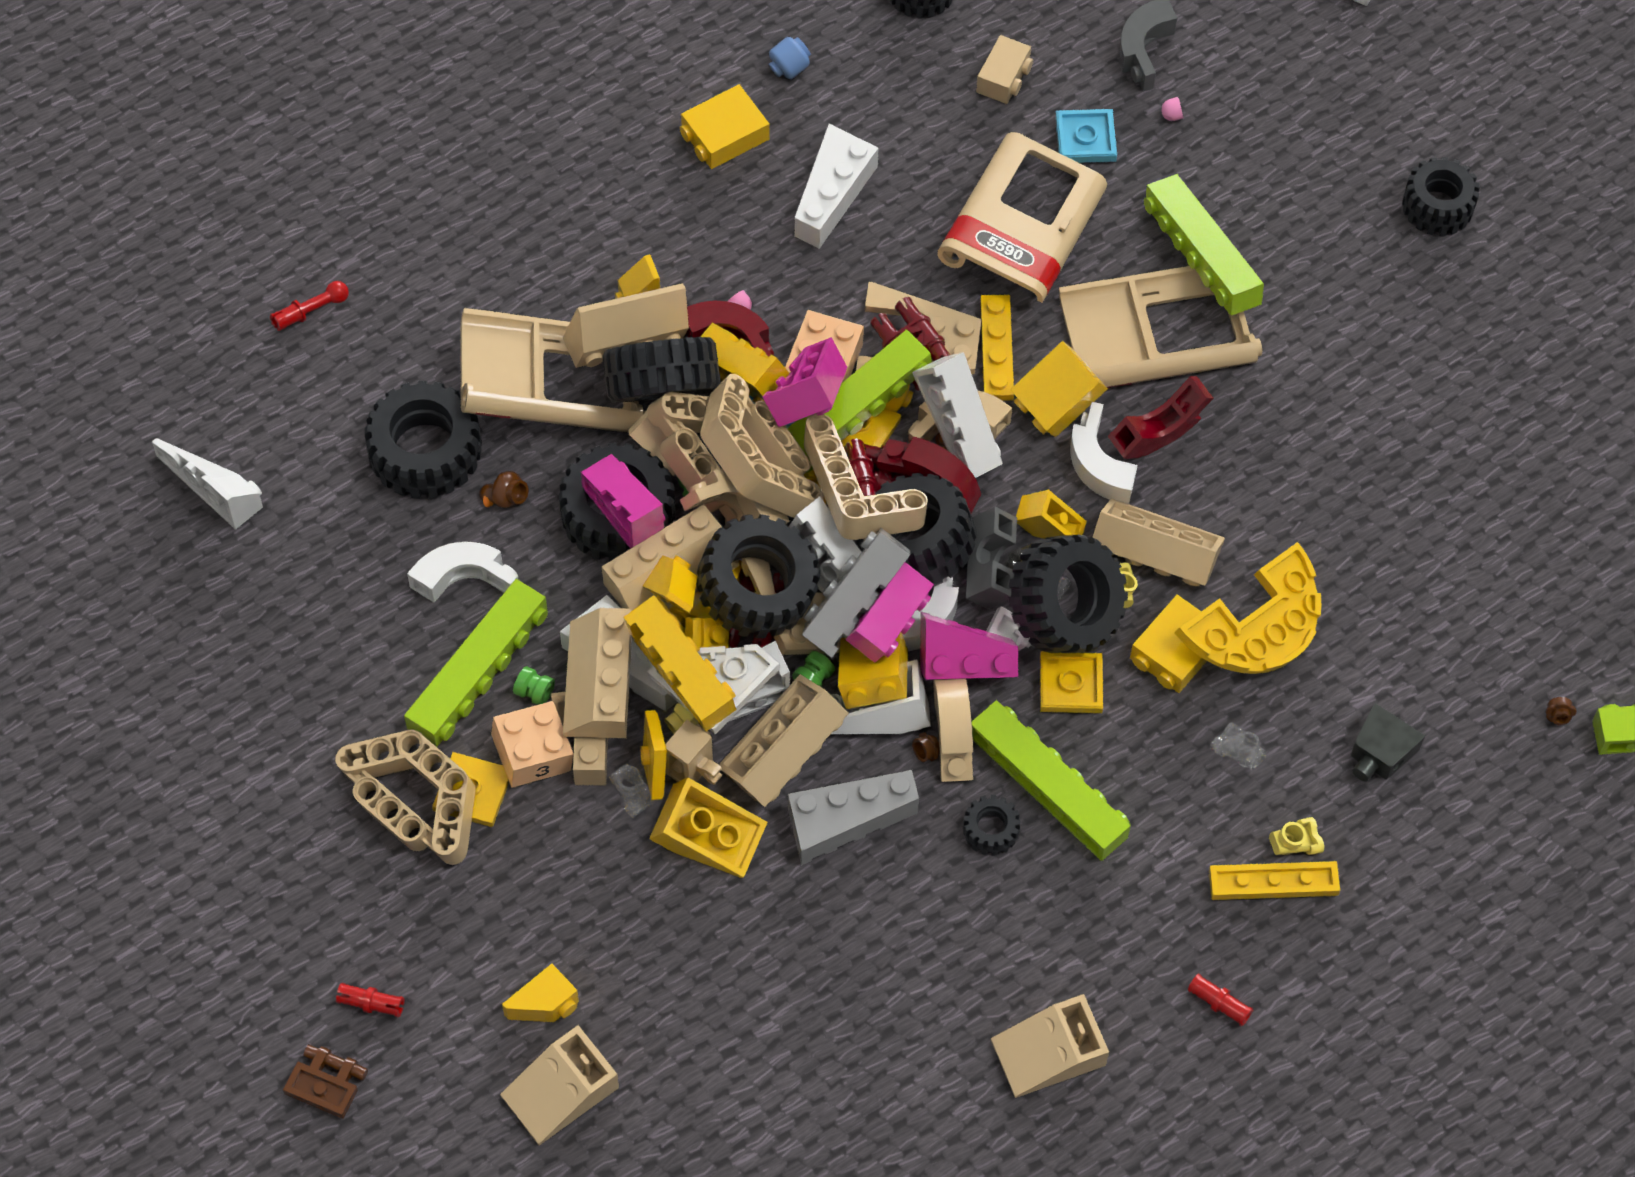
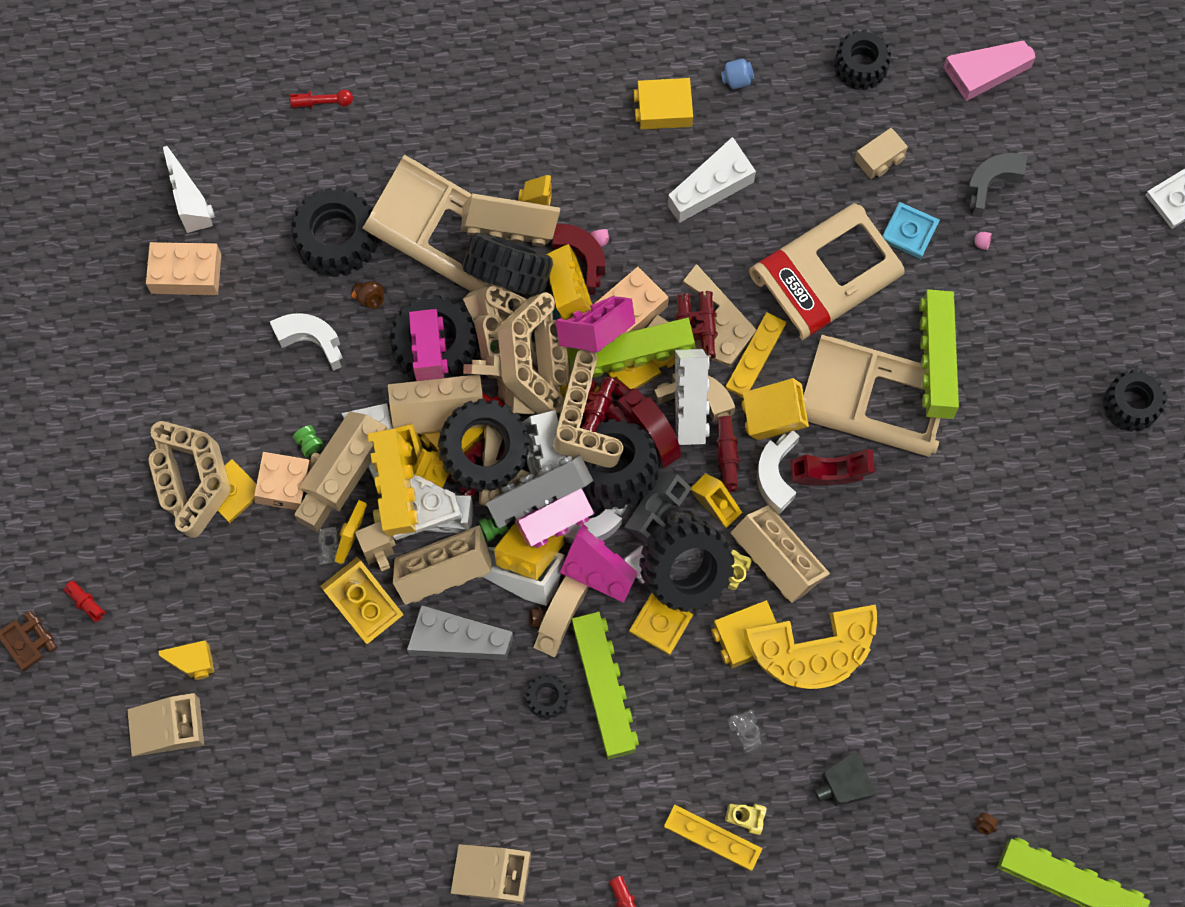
camera: 30 degrees right, 10 degrees up
(261, 567) = (183, 268): none -> light nougat brick
(477, 662) = (281, 405): lime brick -> none
(673, 582) = (425, 421): yellow slope -> none
(1033, 459) = (727, 453): none -> dark red pin

